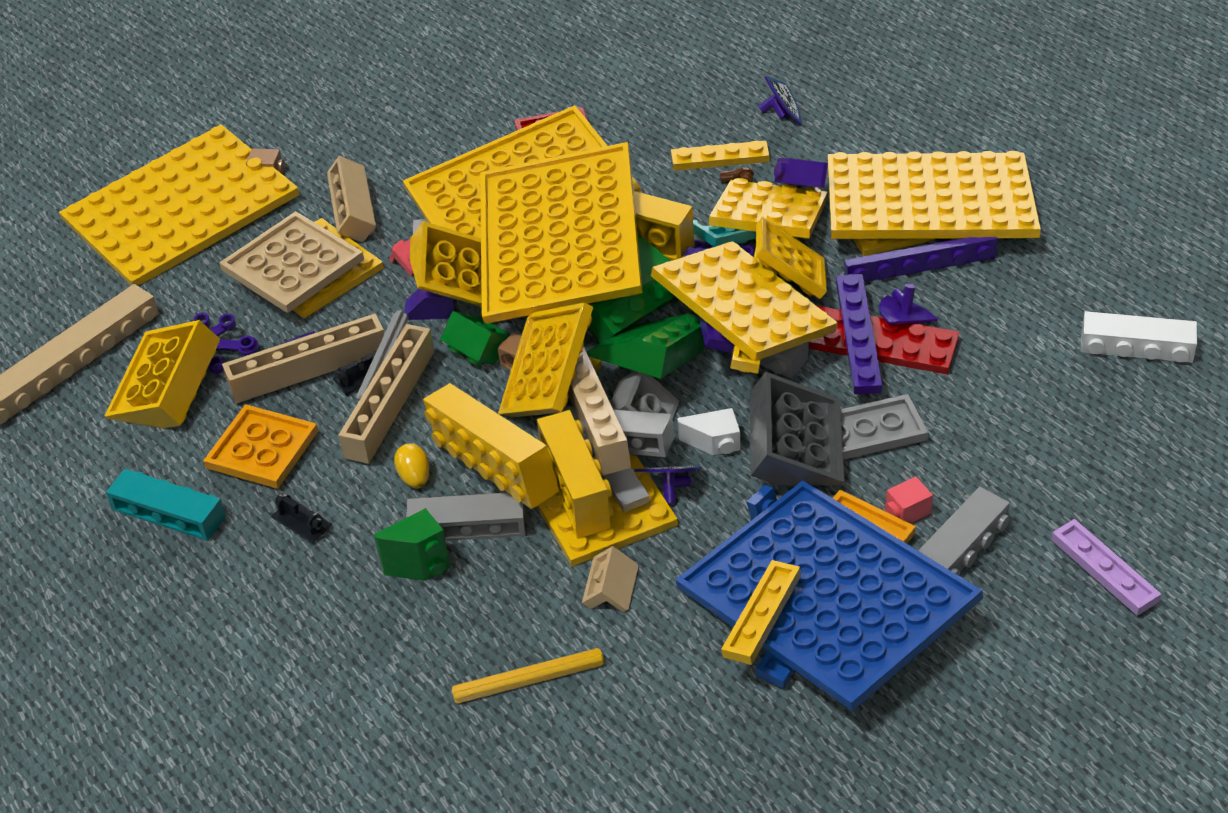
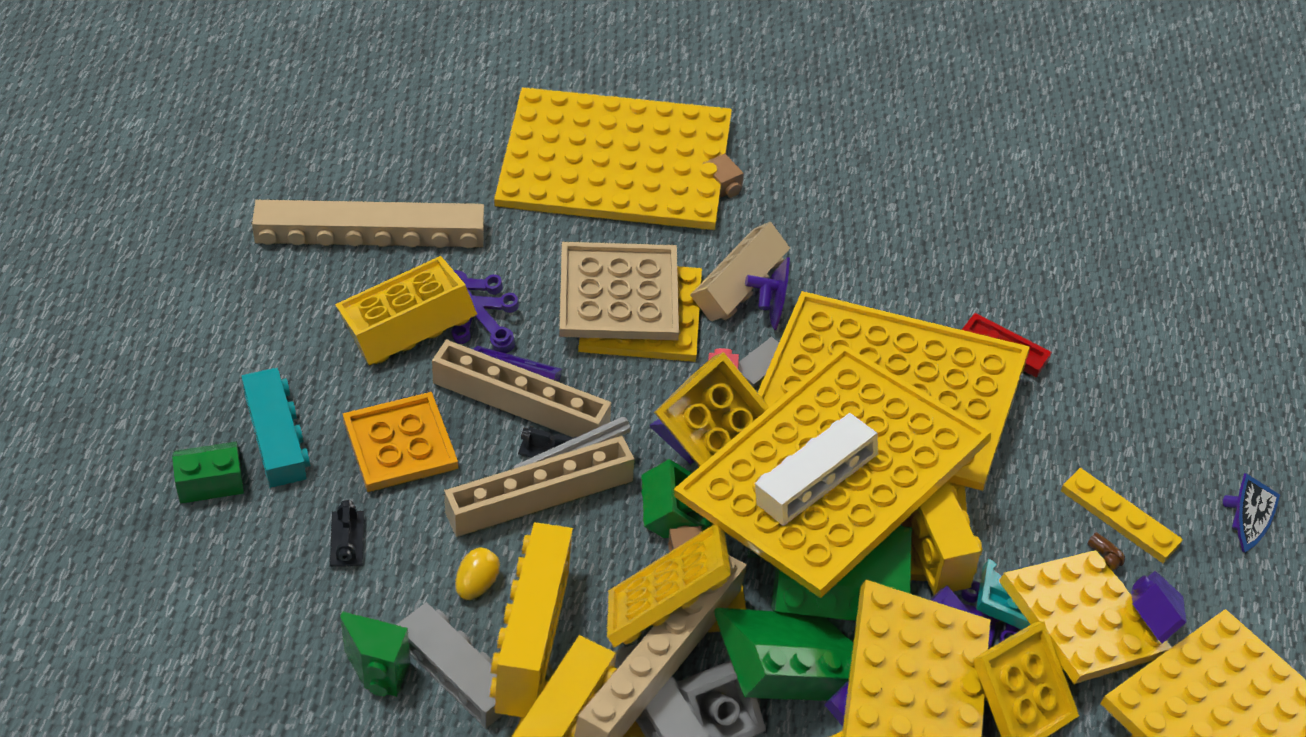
camera: 40 degrees right, 5 degrees up
(156, 562) = (207, 472): none -> green slope
(388, 191) = (772, 291): none -> dark purple shield
(557, 233) = (816, 468): none -> white brick

